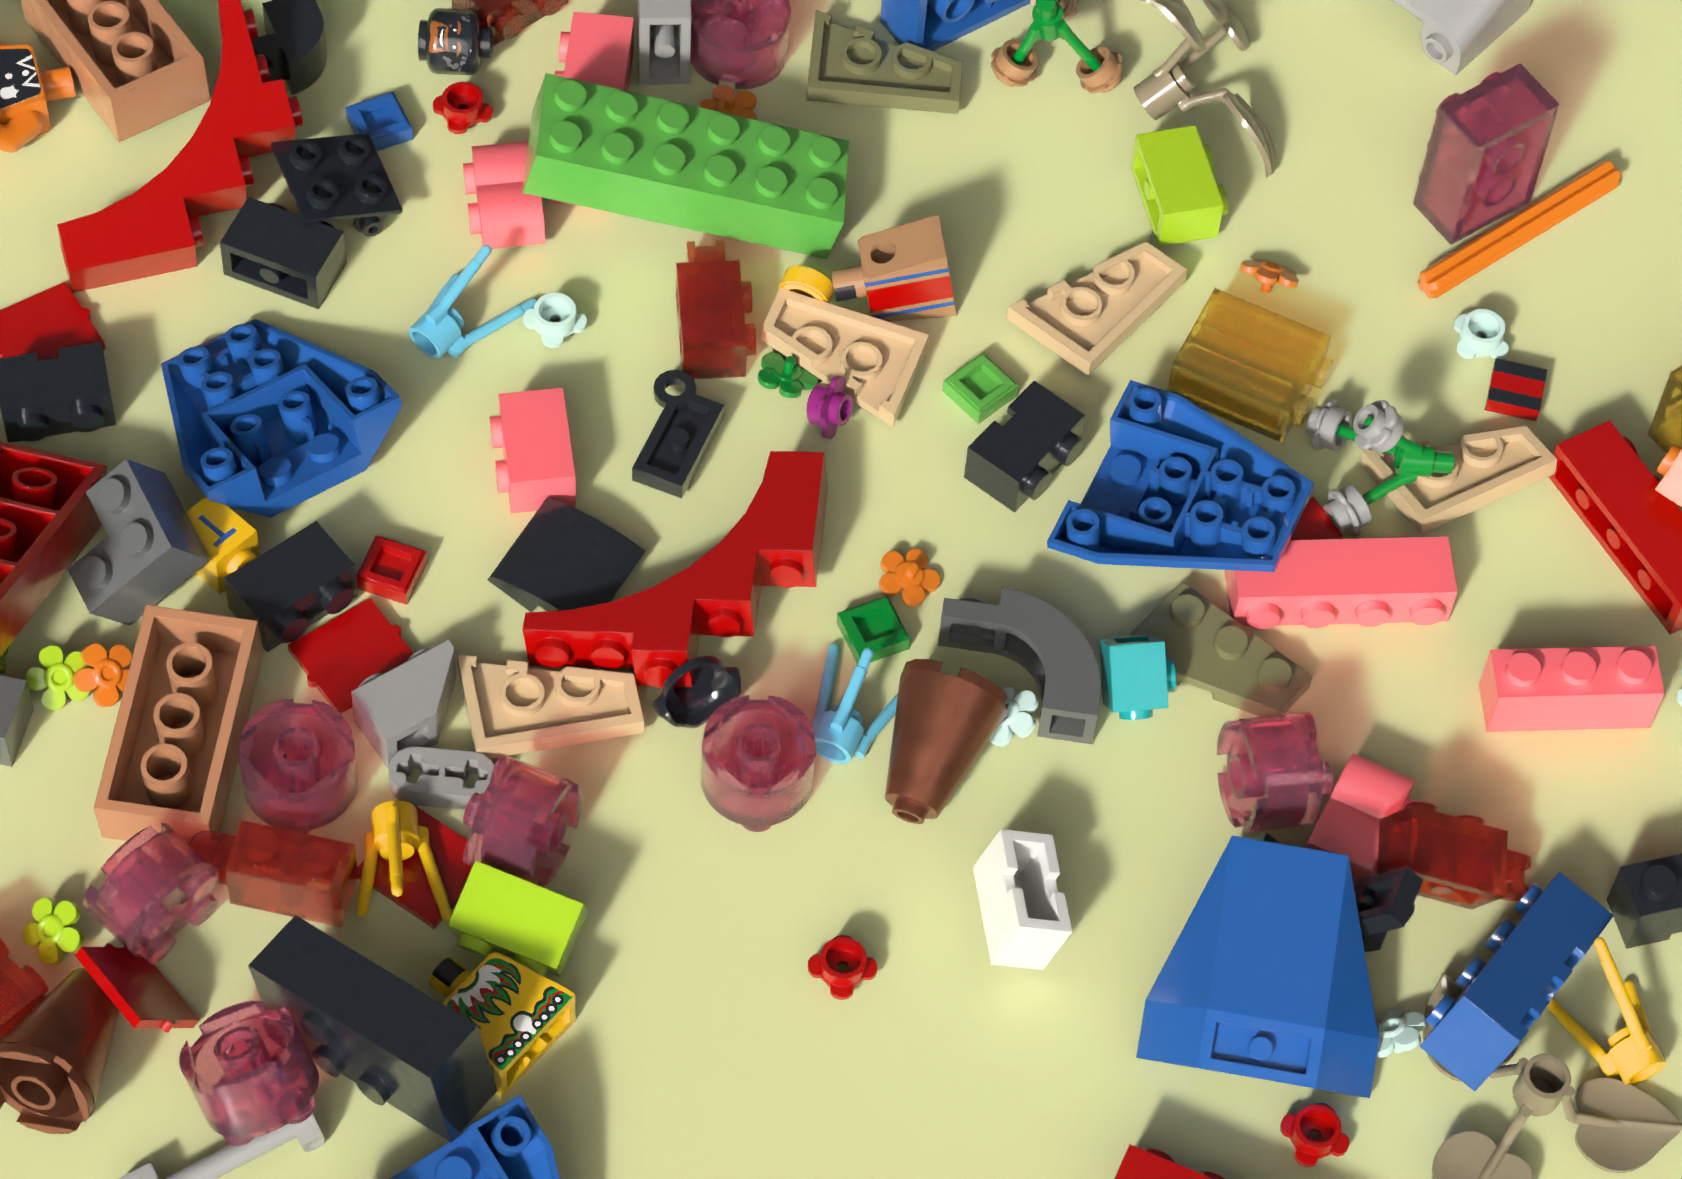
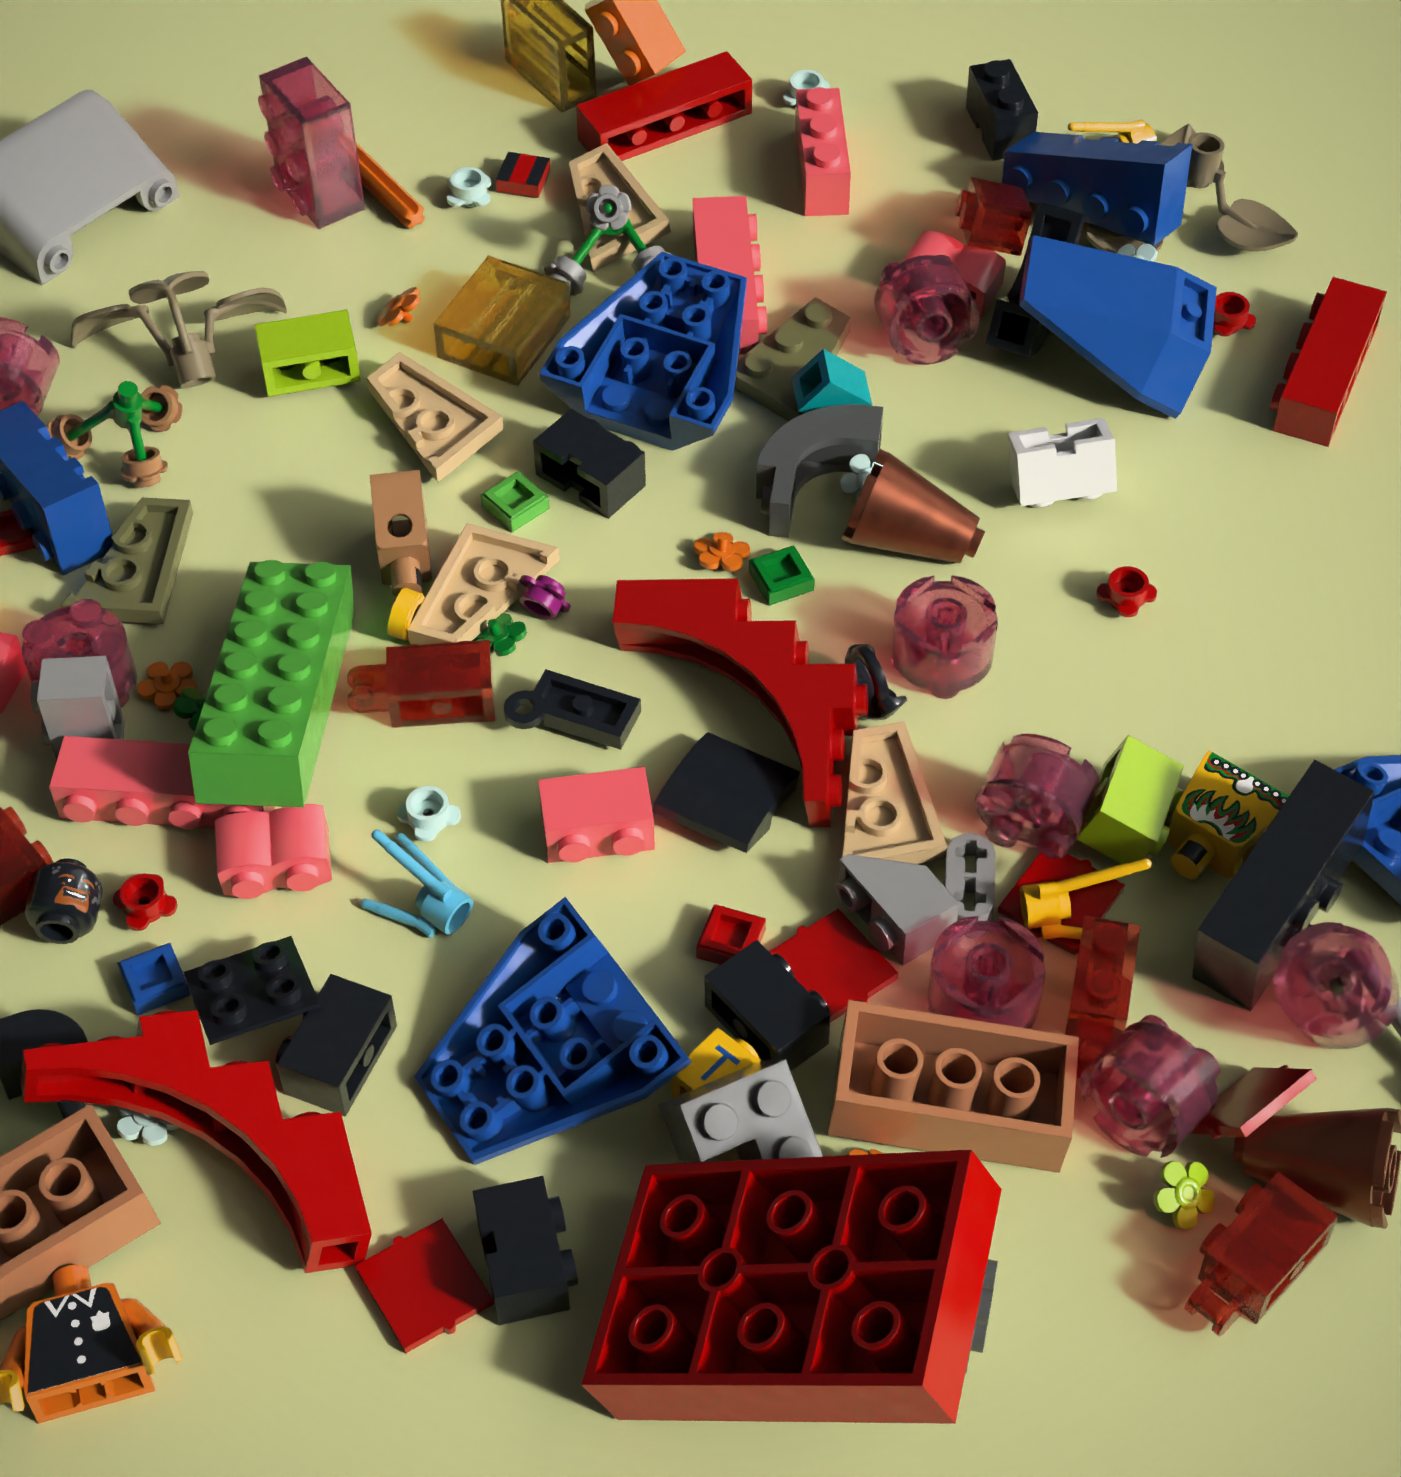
camera: 85 degrees left, 5 degrees down
(840, 731) = (888, 588): medium azure plant -> none

